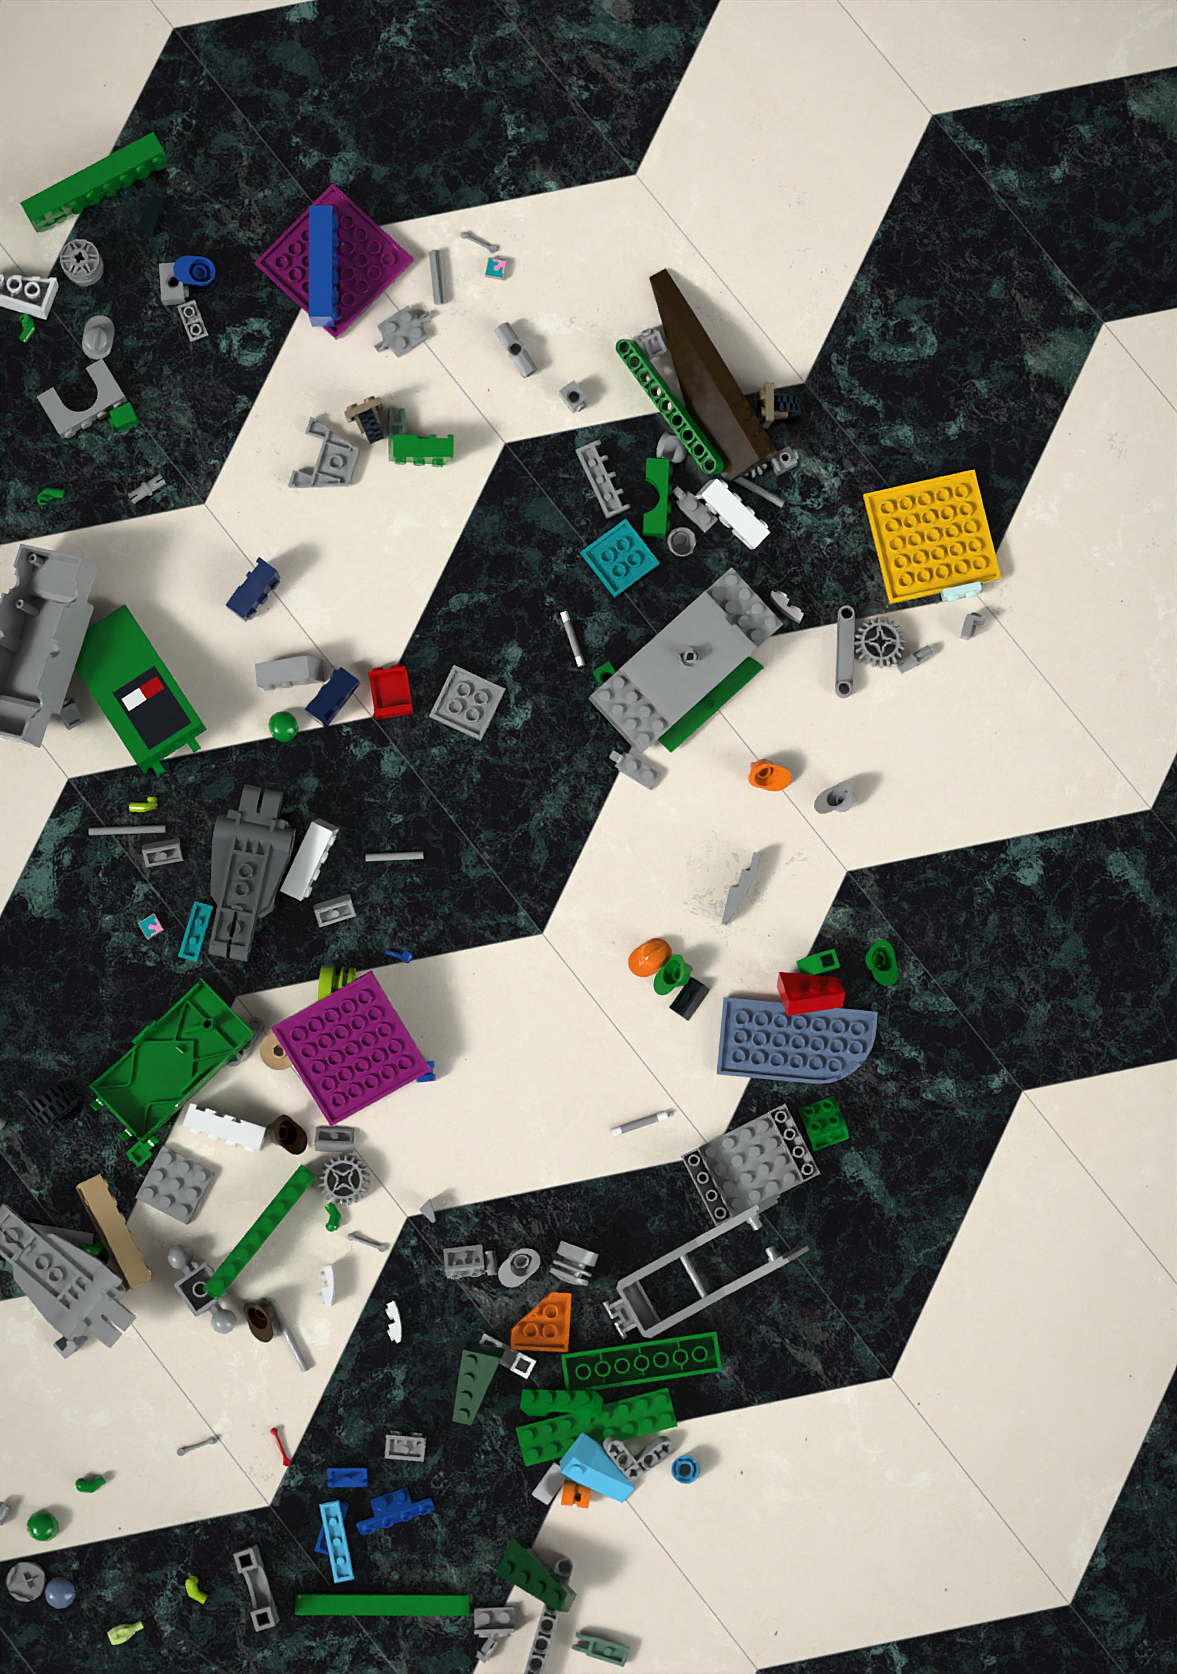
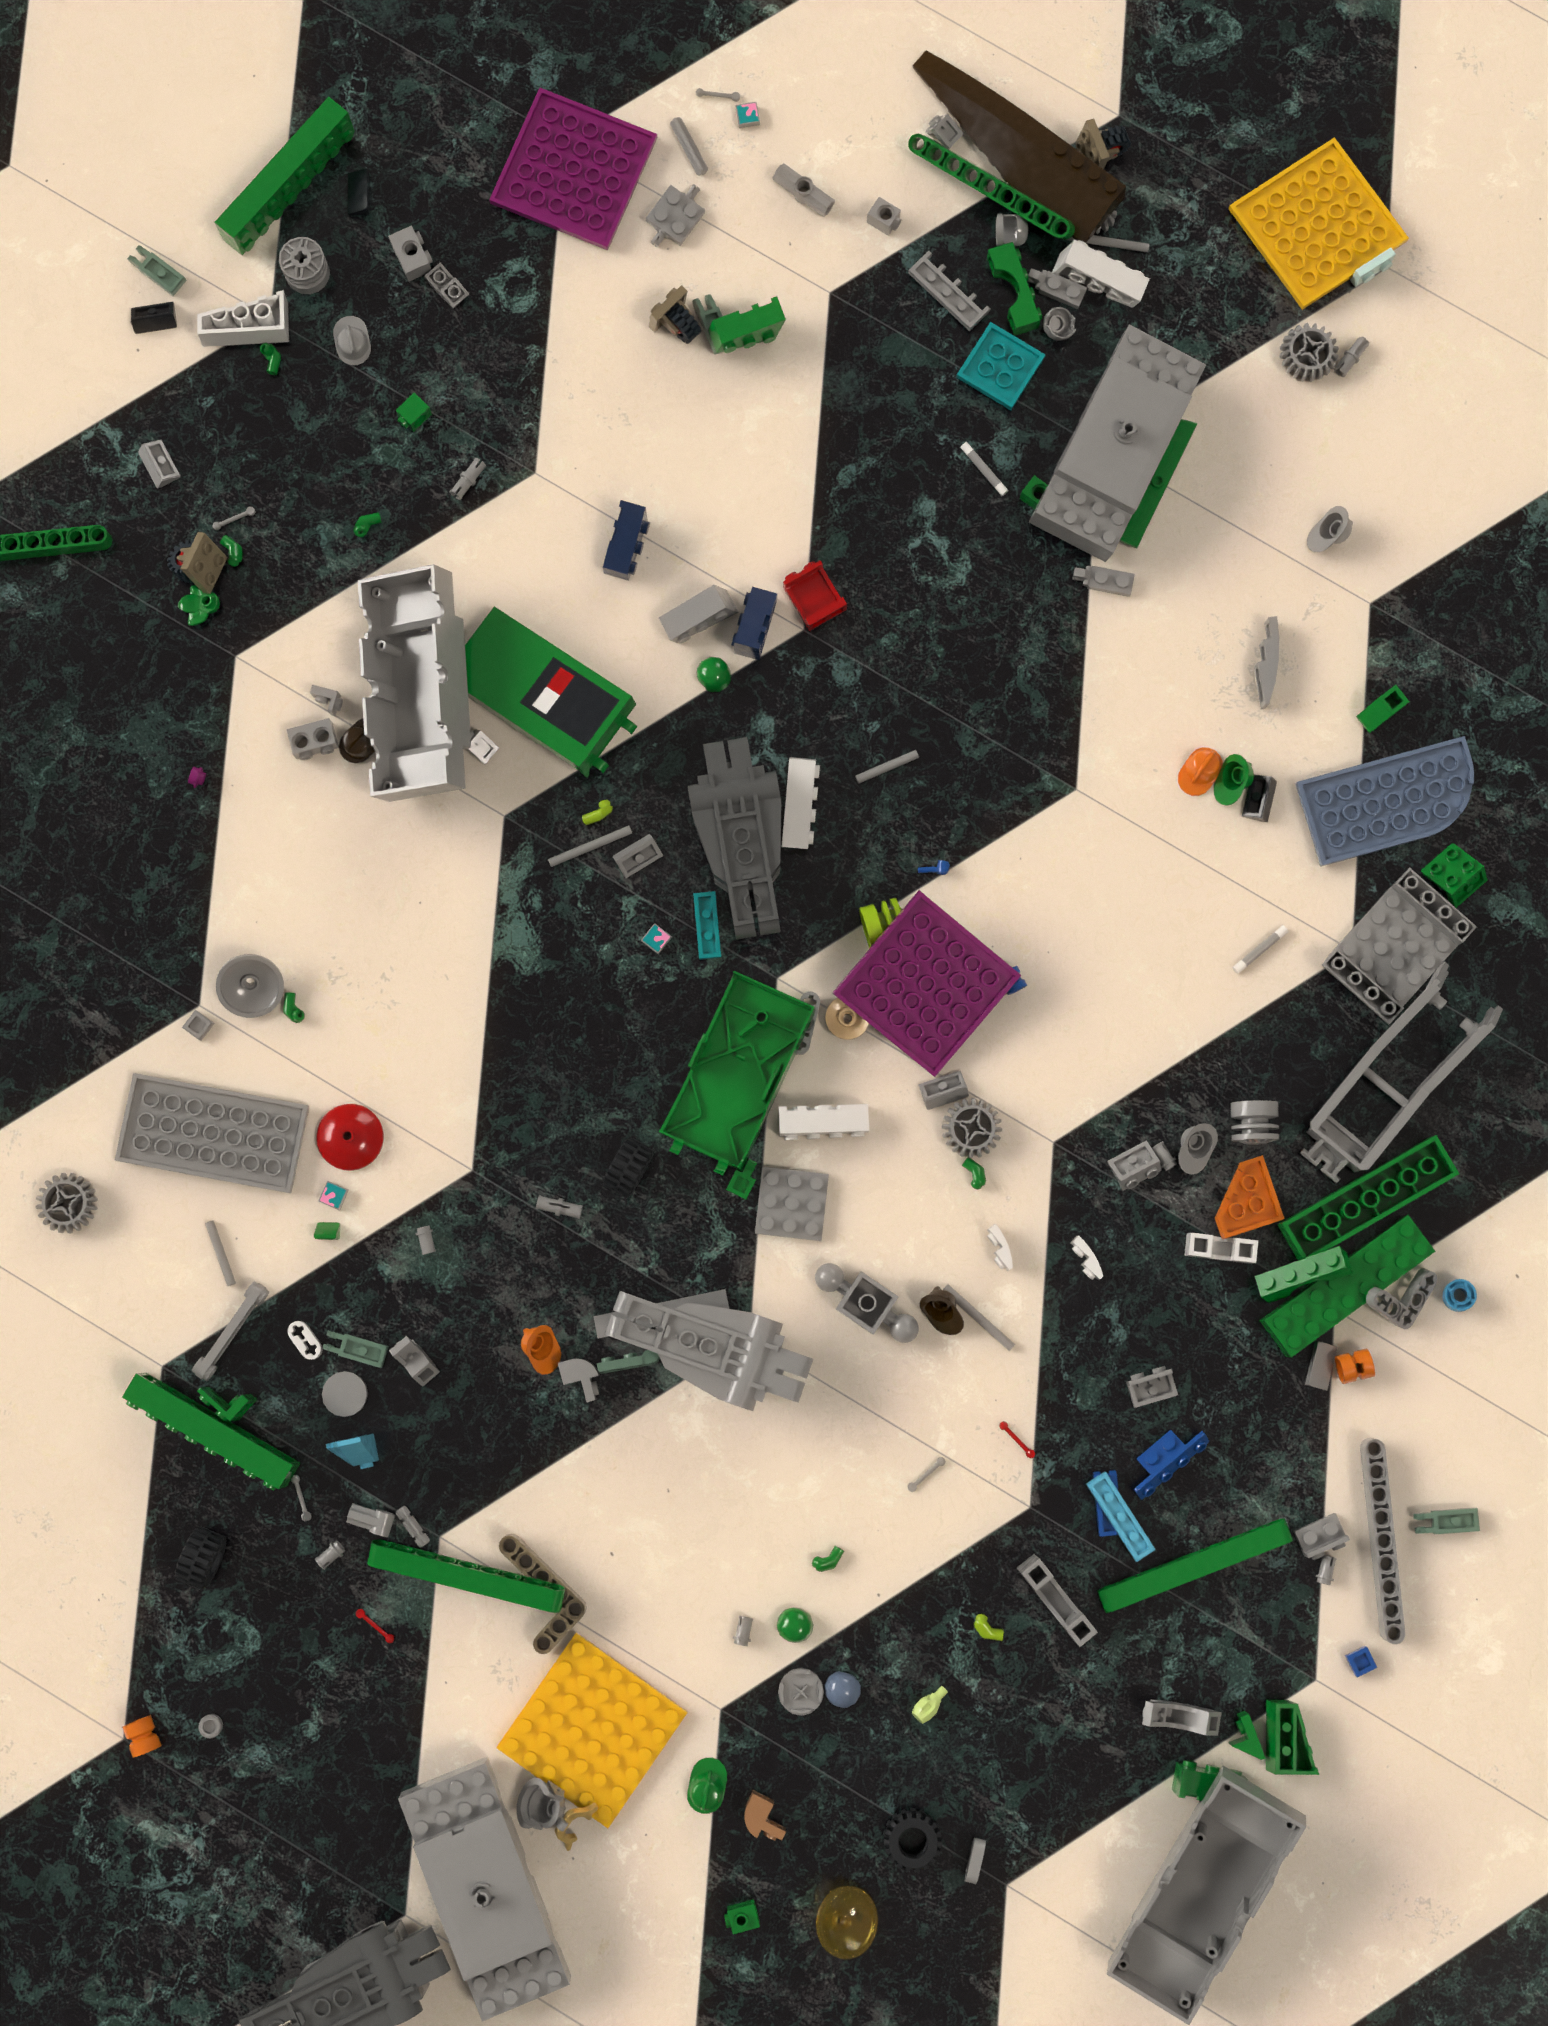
camera: 25 degrees left, 0 degrees up
(67, 1347) = (746, 1421): light grey bracket -> none
(69, 421) = (355, 438): light grey arch -> none
(95, 1249) = (735, 1302): green arm -> none
(113, 1232) = (747, 1278): tan brick -> none
(194, 270) = (429, 230): blue cap -> none
(259, 1232) = (906, 1218): green brick -> none
(288, 1134) = (893, 1102): dark brown piece -> none
(322, 264) = (566, 172): blue brick -> none
(333, 464) = (657, 375): light grey wing -> none
(334, 910) = (846, 847): light grey slope -> none
(347, 1476) = (1103, 1443): blue hinge -> none
(351, 1237) = (1003, 1186): light grey hinge -> none
(428, 1211) = (1076, 1127): light grey slope -> none
(467, 703) = (900, 576): light grey plate -> none
(475, 1376) = (1202, 1279): dark green wedge -> none
(530, 1573) = (1342, 1469): dark green wedge -> none
(593, 1468) = (1365, 1330): medium azure wedge -> none
(769, 776) = (1250, 532): orange piece -> none
(781, 466) = (1130, 207): light grey brick -> none
(781, 601) = (1190, 347): white slope -> none
(809, 993) = (1386, 742): red wedge -> none
(845, 651) = (1276, 375): light grey piece -> none
(882, 962) = (1448, 682): green piece -> none
(968, 627) = (1395, 299): light grey bracket -> none

